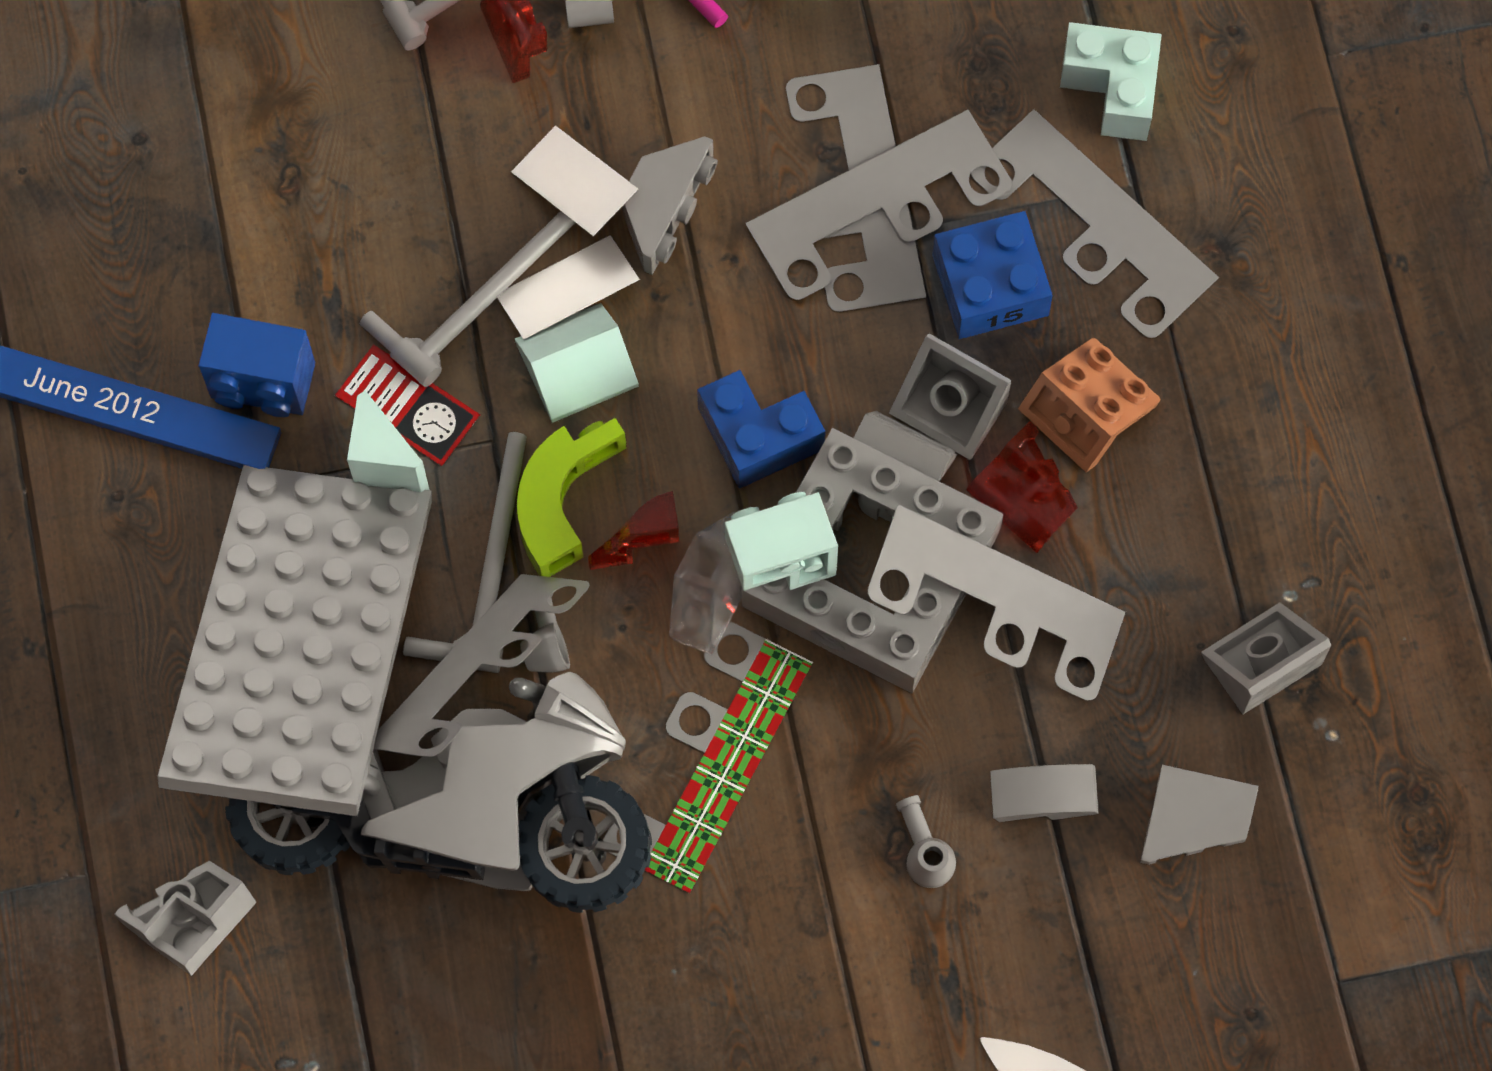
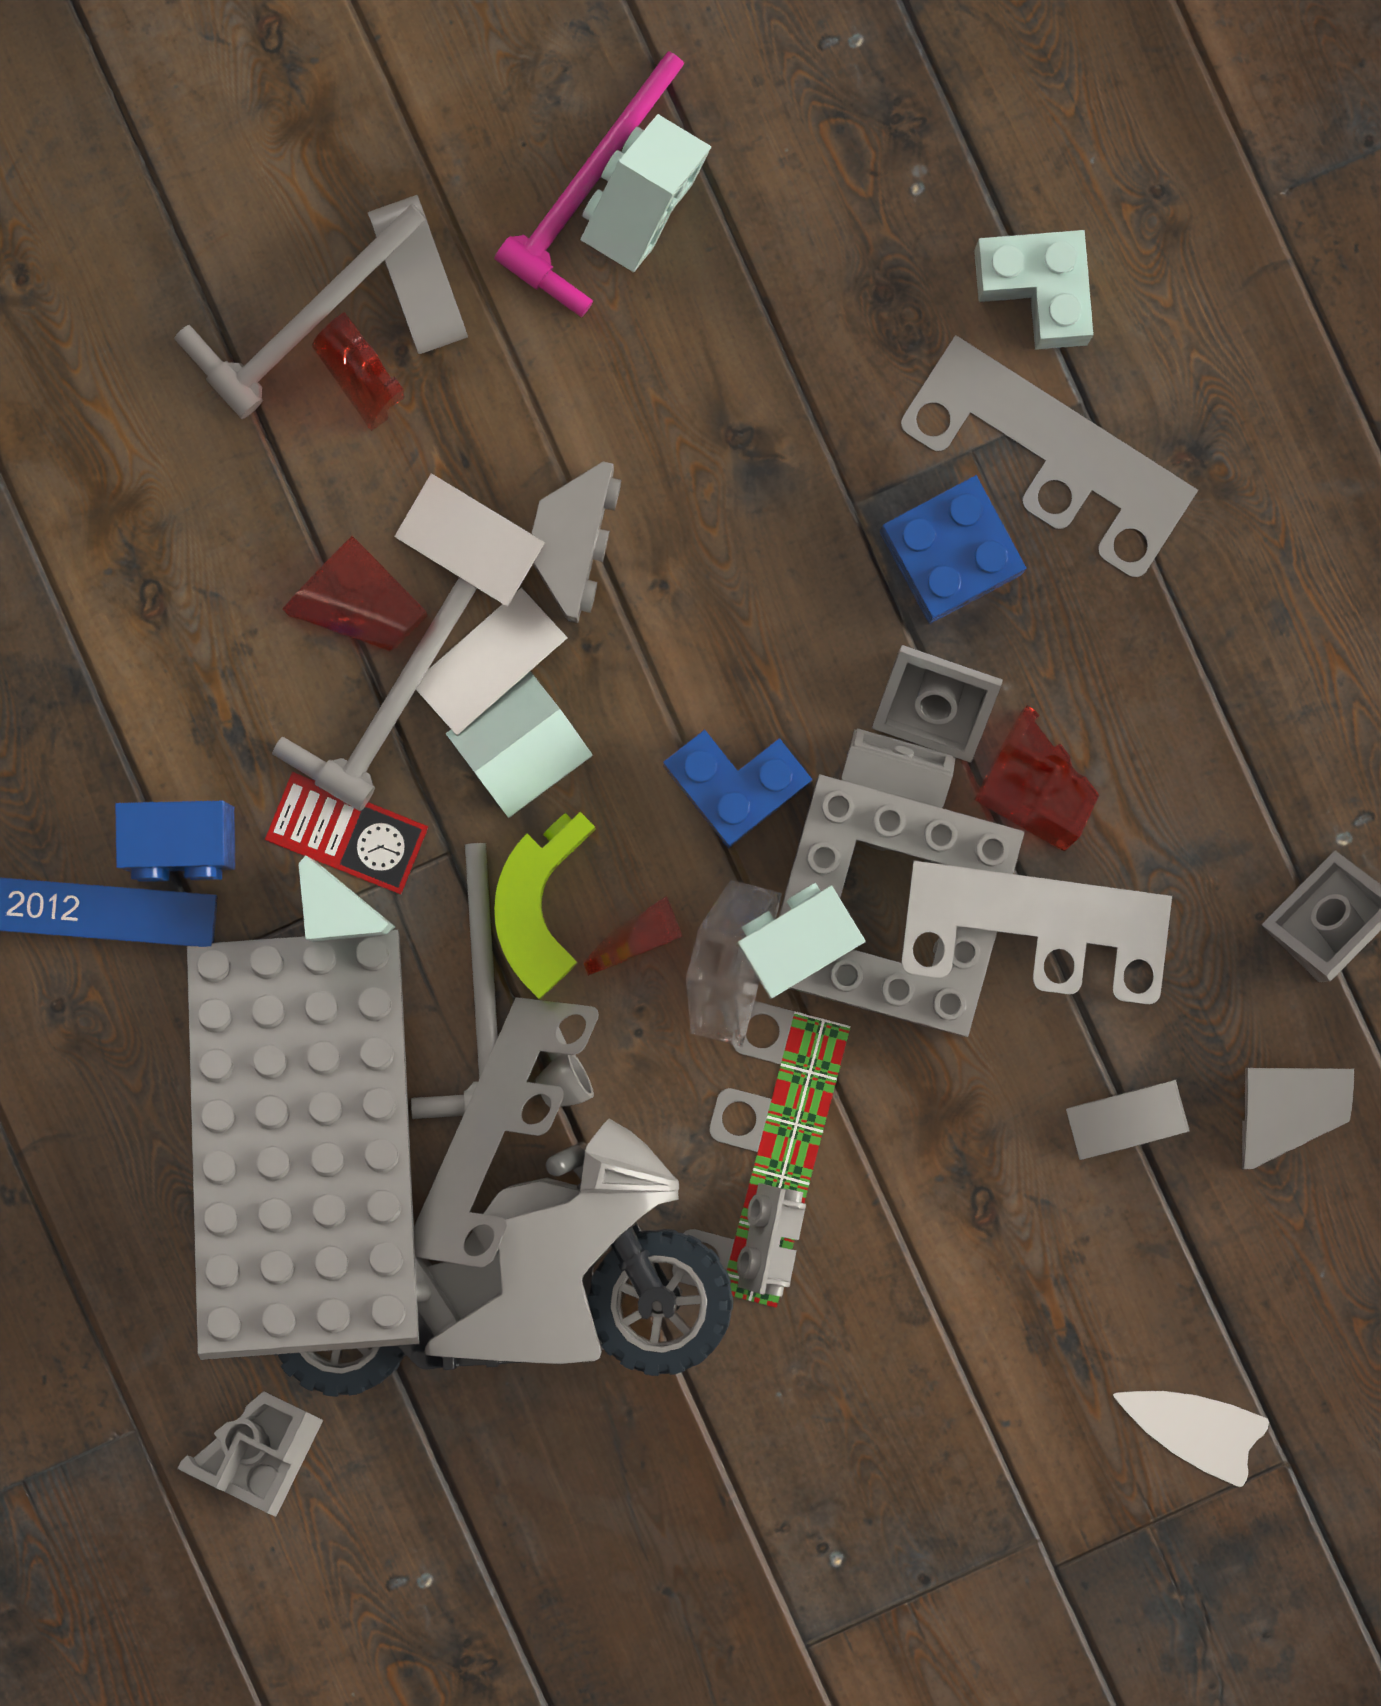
camera: 20 degrees left, 15 degrees up
(466, 211) = (357, 599): none -> clear red slope
(704, 808) = (771, 1215): none -> light grey hinge
(866, 129) = (804, 474): light grey piece -> none
(881, 182) = (804, 461): light grey piece -> none
(918, 869) = (1013, 1204): light grey bar -> none
(1087, 402) = (1088, 671): nougat bracket -> none

